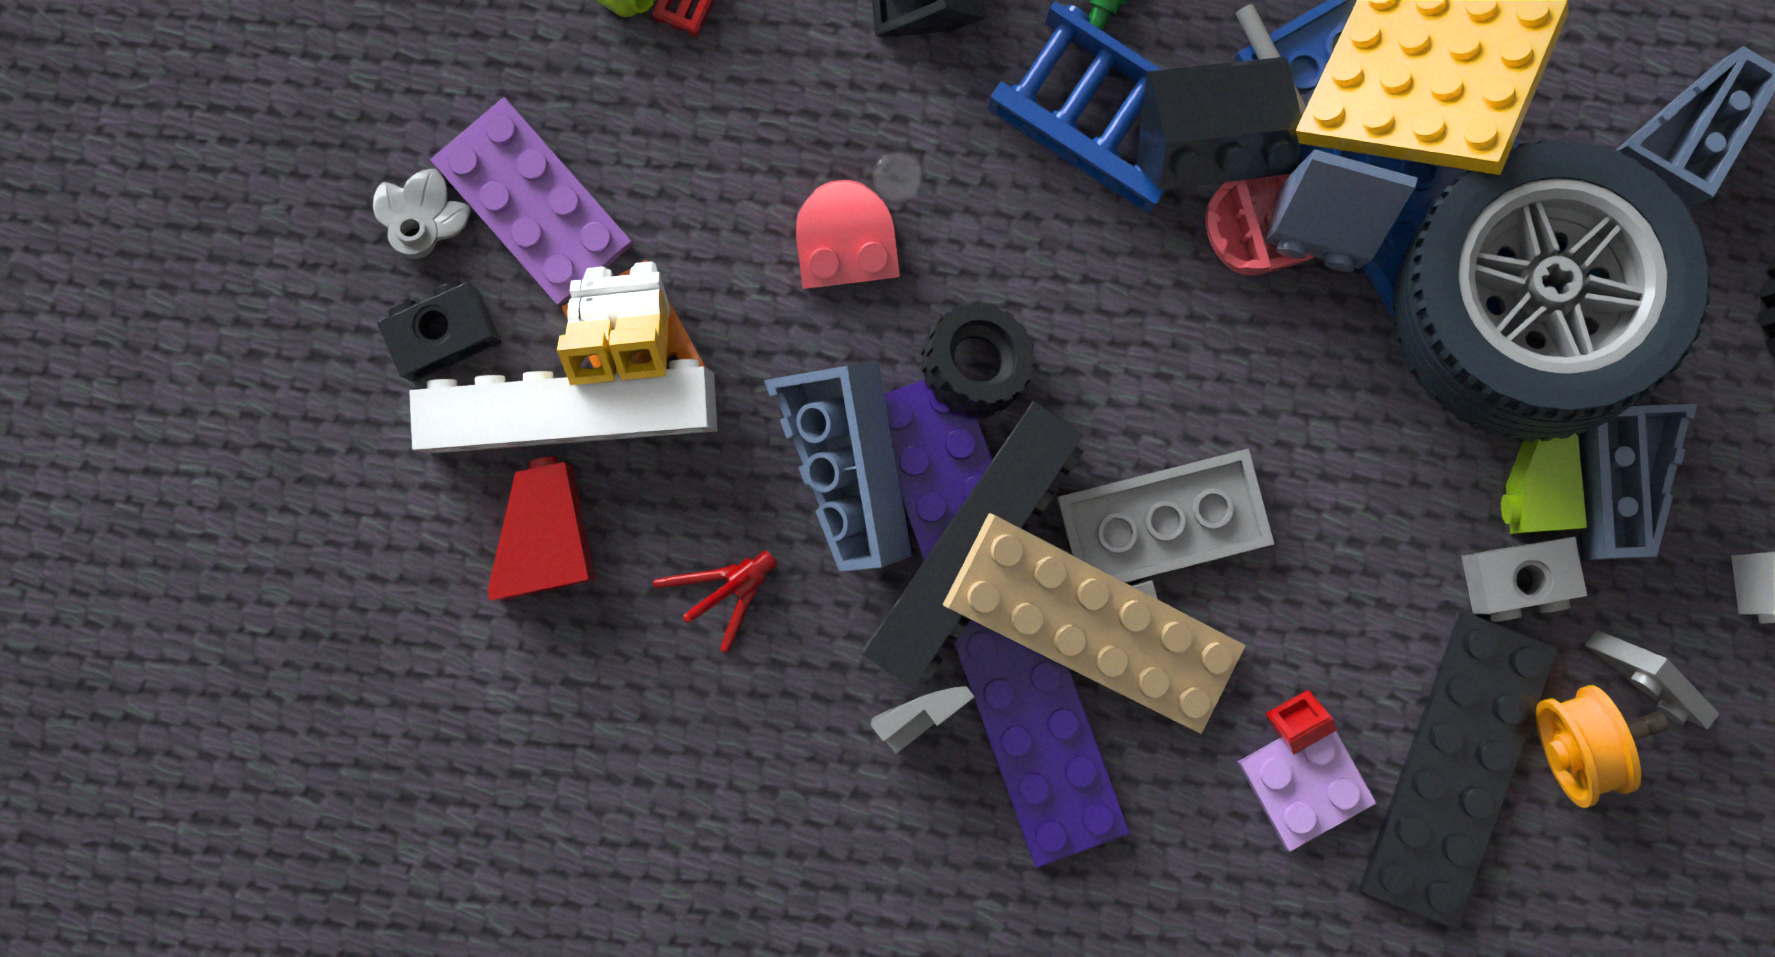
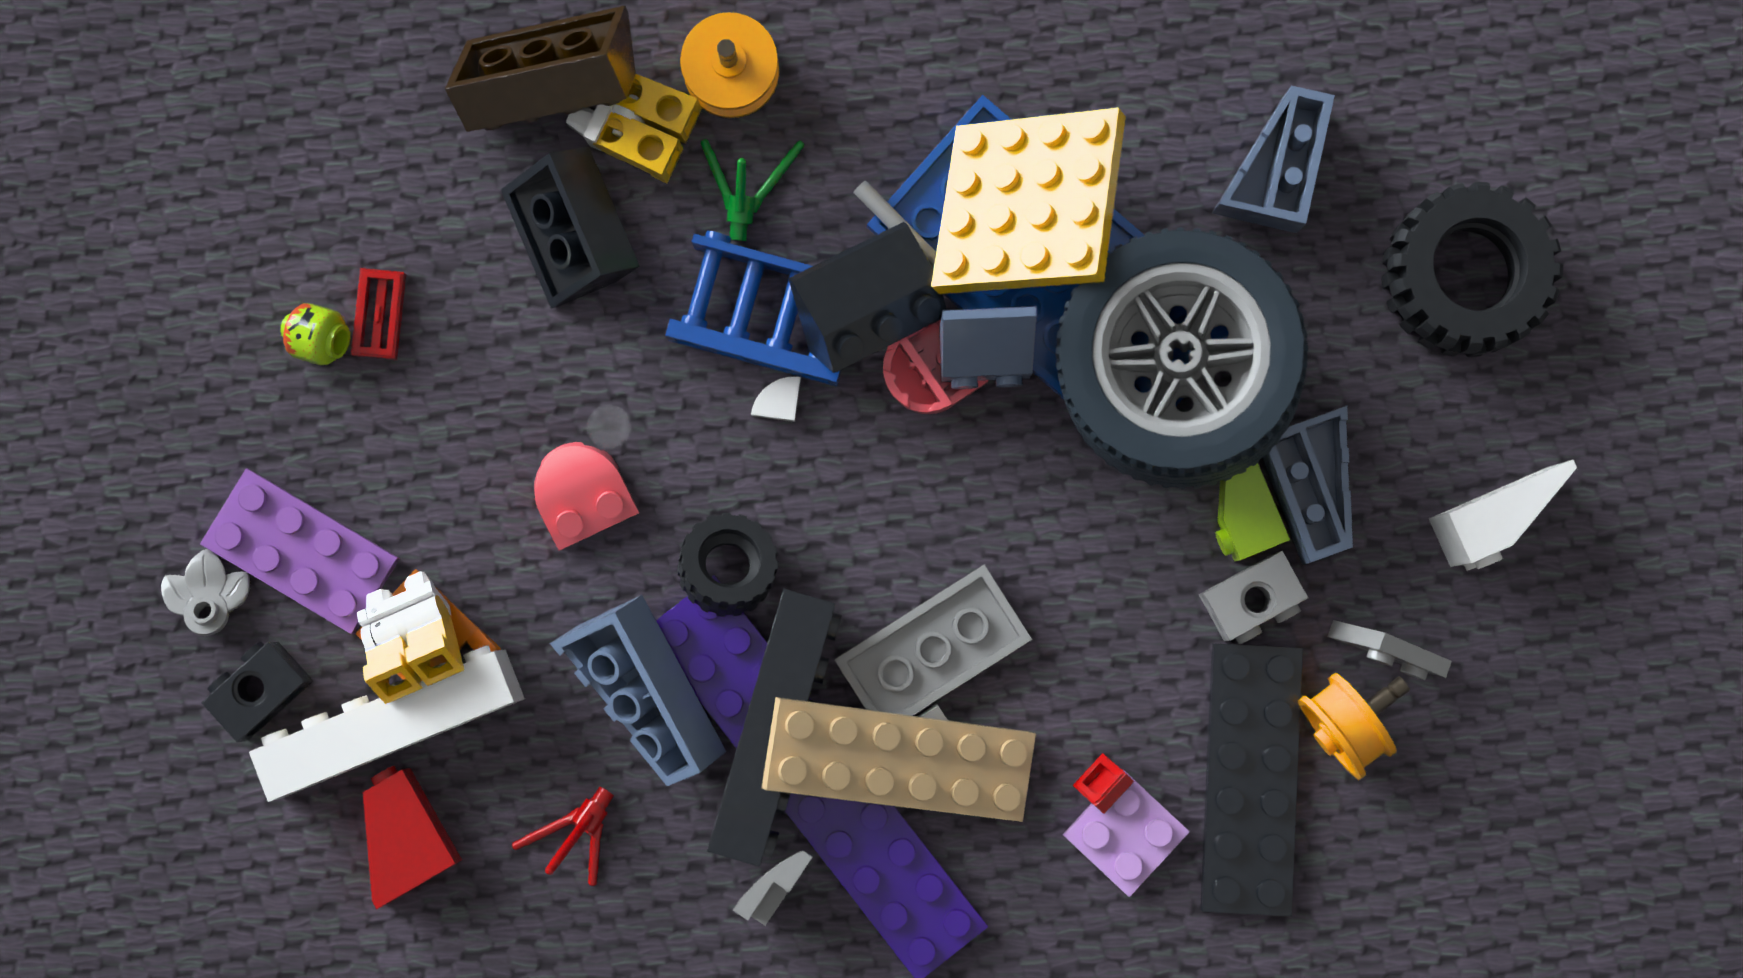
camera: 15 degrees left, 0 degrees up
(1083, 207) = (778, 400): none -> white tile

